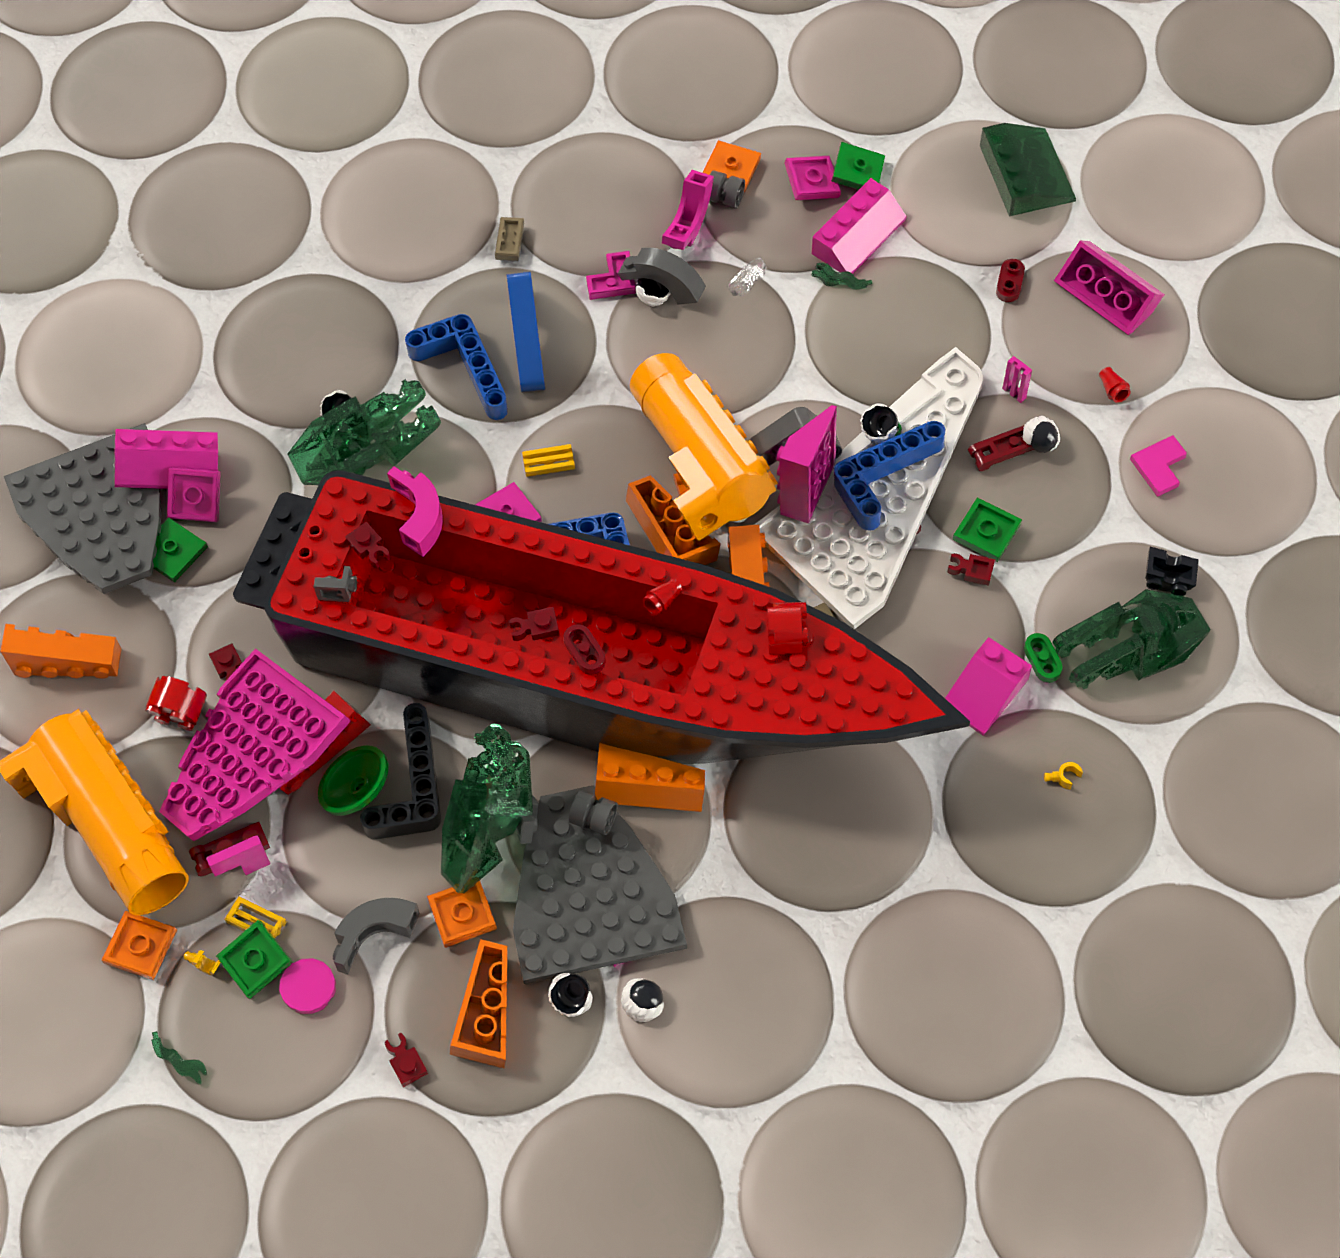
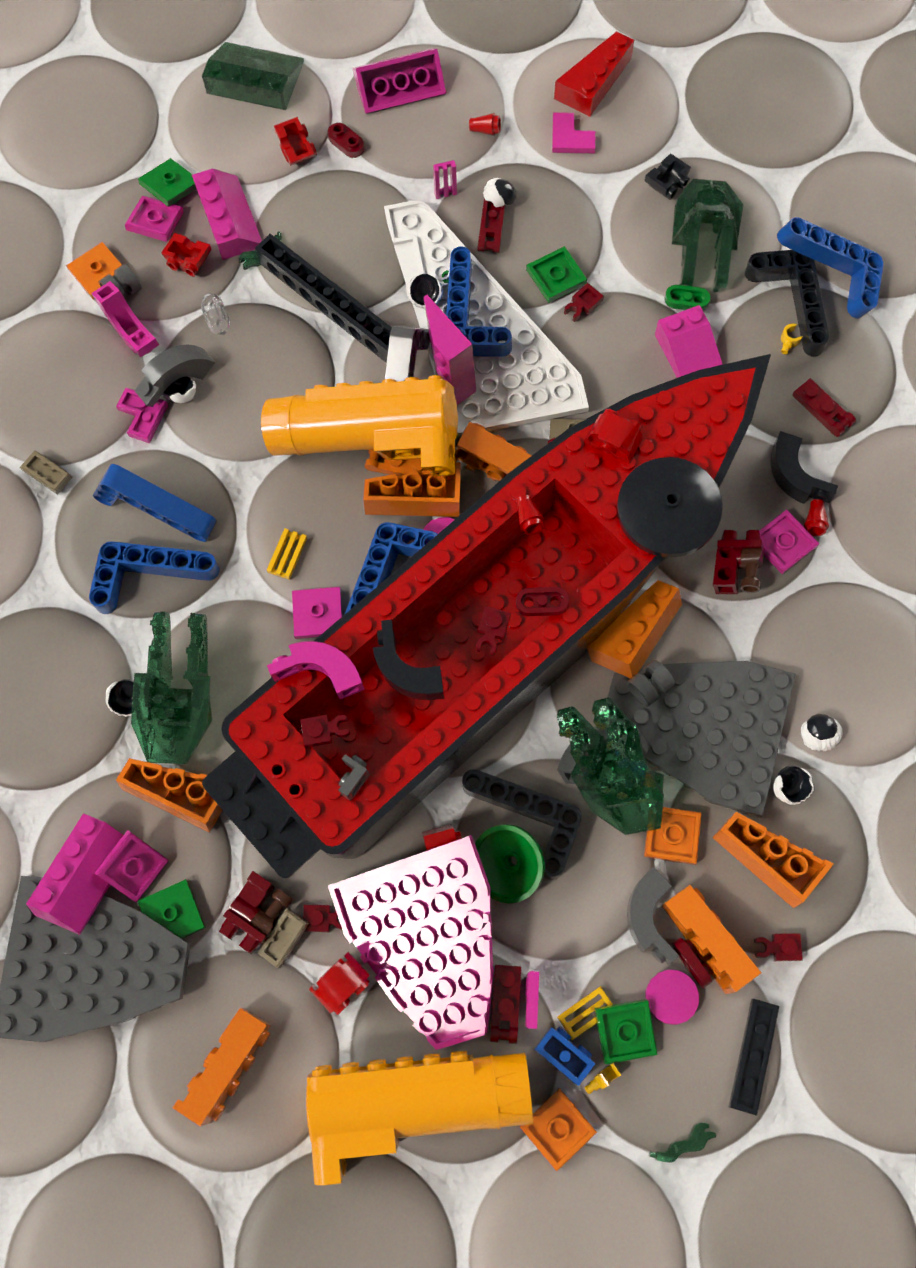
camera: 60 degrees left, 10 degrees up
(194, 642) = (283, 938): none -> dark tan plate
(197, 606) = (247, 913): none -> dark red hips
(203, 914) = (564, 1056): none -> blue brick
(272, 478) = (172, 791): none -> orange wedge
(289, 1084) = (754, 1057): none -> black tile
(342, 994) = (699, 970): none -> dark red plate
(375, 989) = (713, 943): none -> orange wedge
(449, 568) = (407, 680): none -> black arch
(743, 707) = (667, 527): none -> black dish
(778, 830) = (737, 555): none -> dark red hips
(791, 220) = (185, 254): none -> red cylinder
(825, 339) = (325, 295): none -> black brick
(826, 873) = (786, 541): none -> dark pink plate
(870, 891) = (816, 520): none -> red cone
(912, 833) = (792, 477): none -> black arch
(972, 239) = (294, 142): none -> red cylinder
(1005, 842) = (823, 407): none -> dark red plate
(1123, 759) = (799, 270): none -> black beam
(1180, 770) = (841, 254): none -> blue beam
(1244, 448) = (595, 74): none -> red wedge

